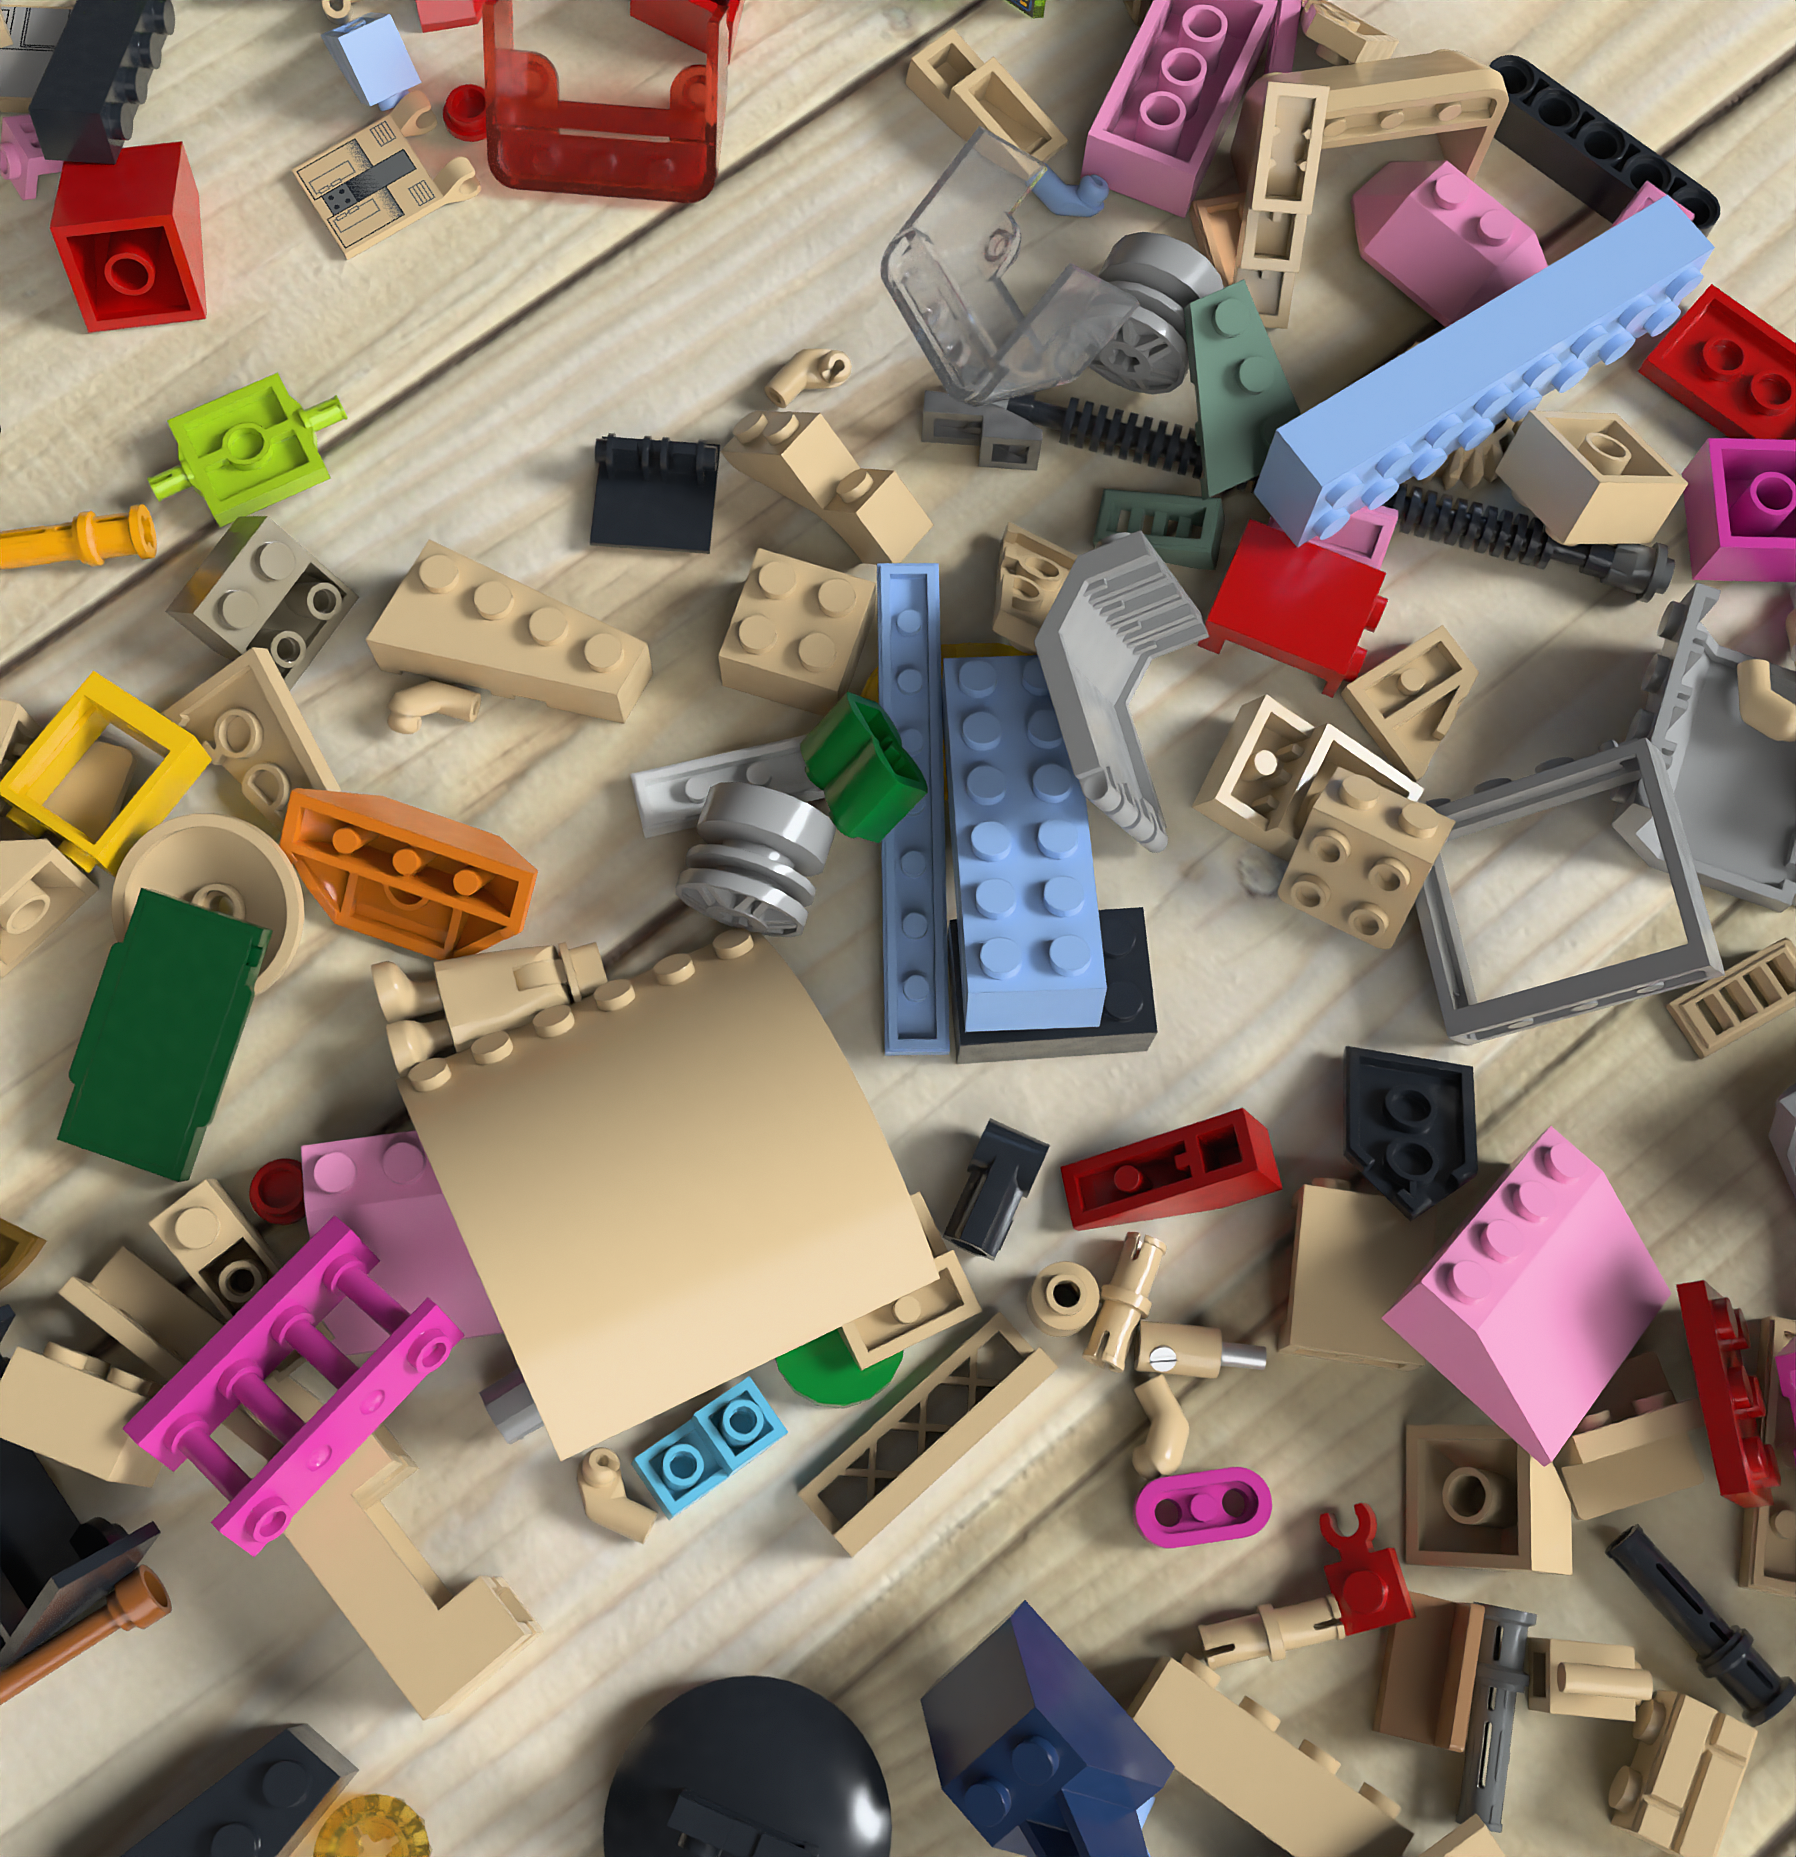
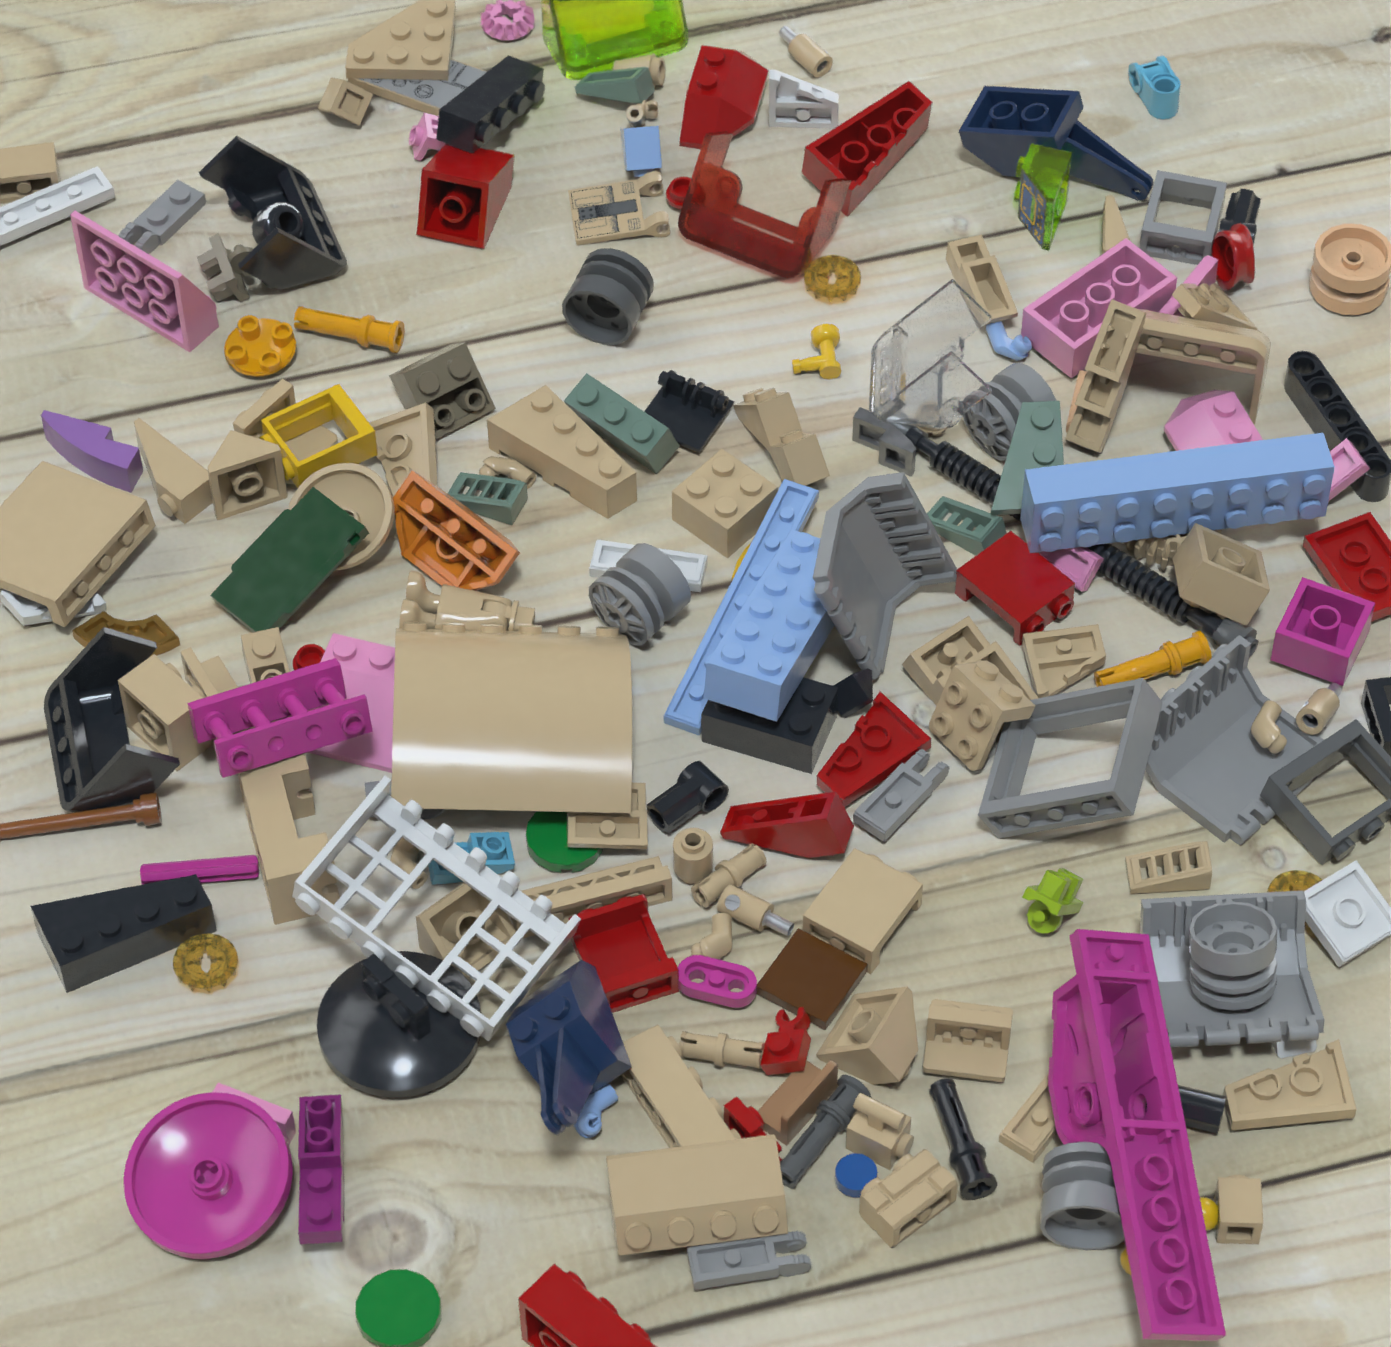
camera: 30 degrees right, 20 degrees down
(248, 449) = (473, 316): lime plate -> none
(269, 1682) = (206, 869): none -> dark pink axle
(441, 739) = (495, 508): none -> sand green slope
(449, 340) = (608, 296): none -> dark grey wheel
(574, 555) = (622, 423): none -> sand green brick
(754, 1529) = (469, 868): none -> white window
(777, 161) = (821, 269): none -> clear yellow gear
(778, 1603) = (451, 917): none -> tan slope
(804, 286) = (824, 338): none -> yellow piece
(808, 371) = (804, 381): tan arm -> none
(862, 769) = (720, 570): green brick -> none
(1038, 1525) = (625, 953): none -> red panel
(1150, 884) = (855, 692): none -> black slope
(1225, 982) = (872, 751): none -> red wing
(1304, 1045) = (899, 796): none -> light grey hinge
(1335, 1429) = (812, 977): none -> reddish brown tile
(1382, 1761) = (745, 1120): none -> red plate
(1409, 1126) = (932, 847): black tile -> none
(1535, 1296) = (950, 935): bright pink slope -> none
(1563, 639) = (1168, 659): none -> light orange pin
(1576, 1762) = (854, 1173): none -> blue tile
(1629, 1134) = (1053, 899): none -> lime hips
(1728, 1396) = (1025, 1027): red plate -> none

